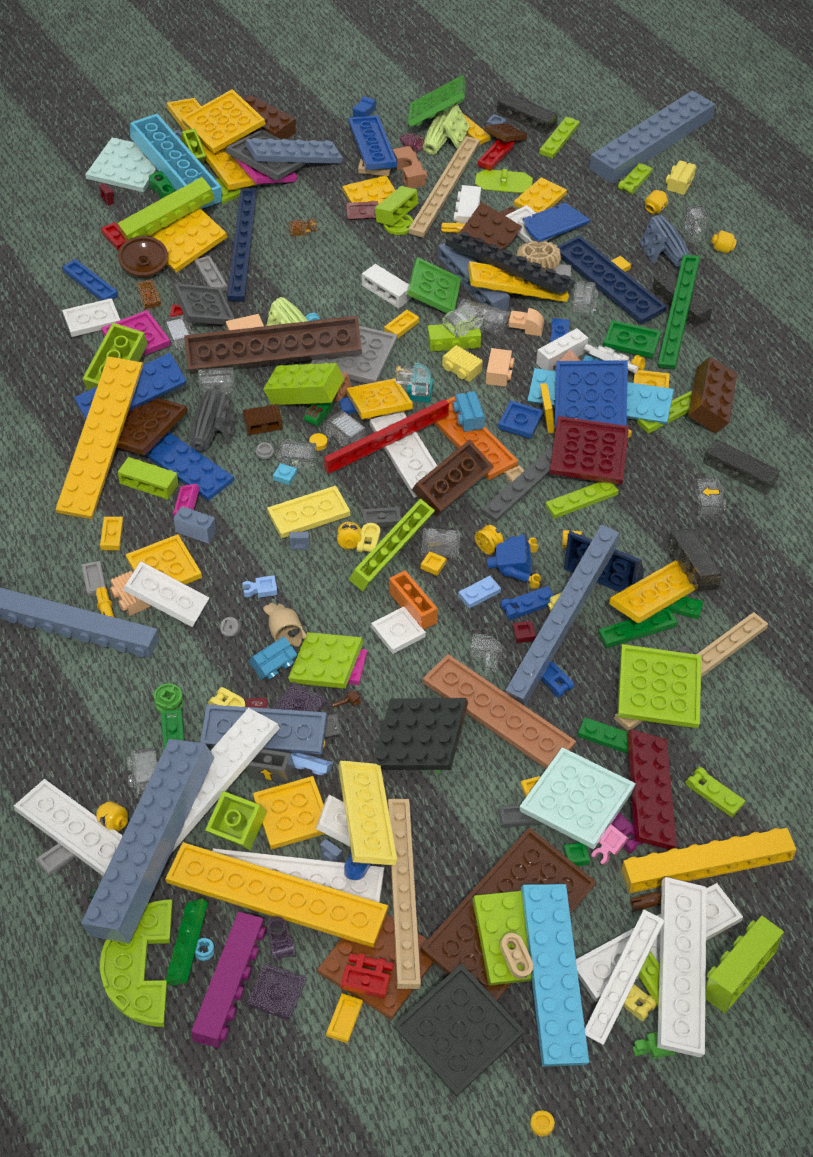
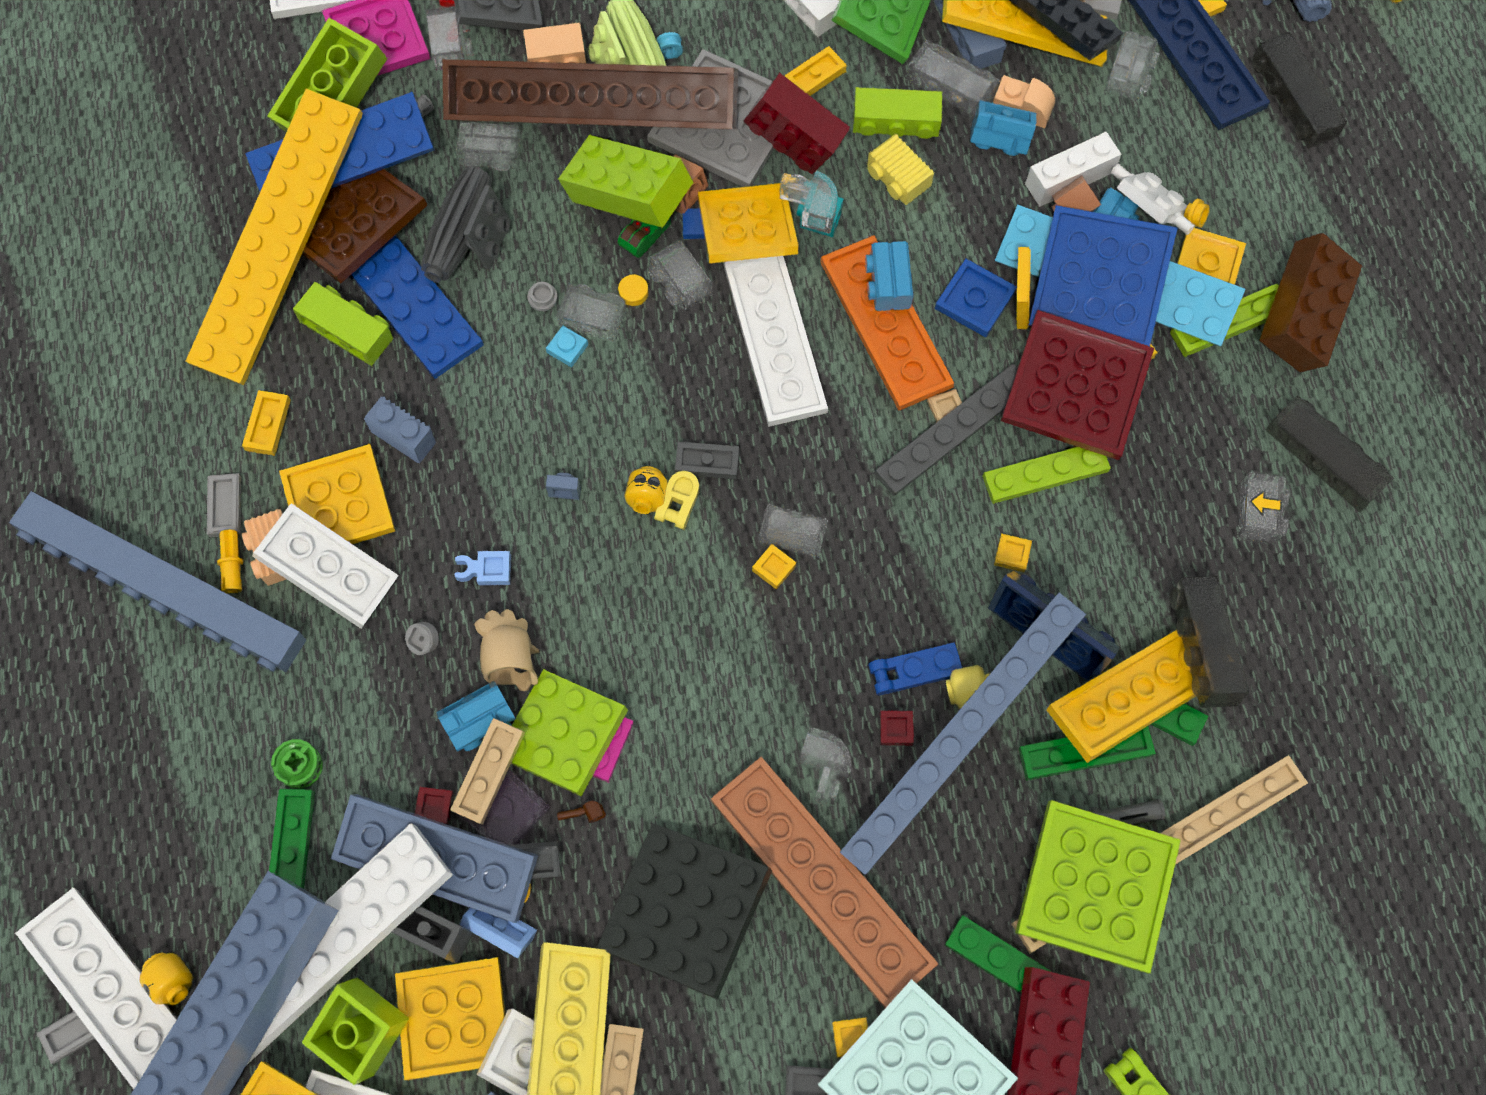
camera: 10 degrees right, 20 degrees up
(142, 764) = (230, 890): clear brick -> none
(187, 497) = (397, 375): dark pink plate -> none
(230, 697) = (398, 791): light yellow plate -> none
(262, 419) = (549, 234): reddish brown brick -> none
(287, 681) = (487, 771): none -> tan plate
(308, 511) = (590, 430): light yellow plate -> none
(386, 436) = (736, 308): red plate -> none
(391, 545) = (710, 524): lime brick -> none
(397, 343) = (796, 124): none -> dark red brick
(398, 630) = (691, 689): white plate -> none
(410, 595) = (724, 641): orange brick -> none
(453, 477) = (836, 410): reddish brown brick -> none
(462, 320) = (916, 89): clear brick -> none
(479, 592) = (839, 633): light blue plate -> none
(488, 538) = (874, 537): yellow wheel -> none
(499, 367) = (960, 185): light nougat brick -> none
(514, 559) = (909, 583): blue torso -> none
(517, 336) = (1002, 128): none -> dark azure brick
(552, 676) = (926, 823): blue plate -> none
(559, 328) = (1076, 124): blue plate -> none
(632, 339) = (1196, 160): green plate -> none
(679, 312) = (1289, 121): green plate -> none

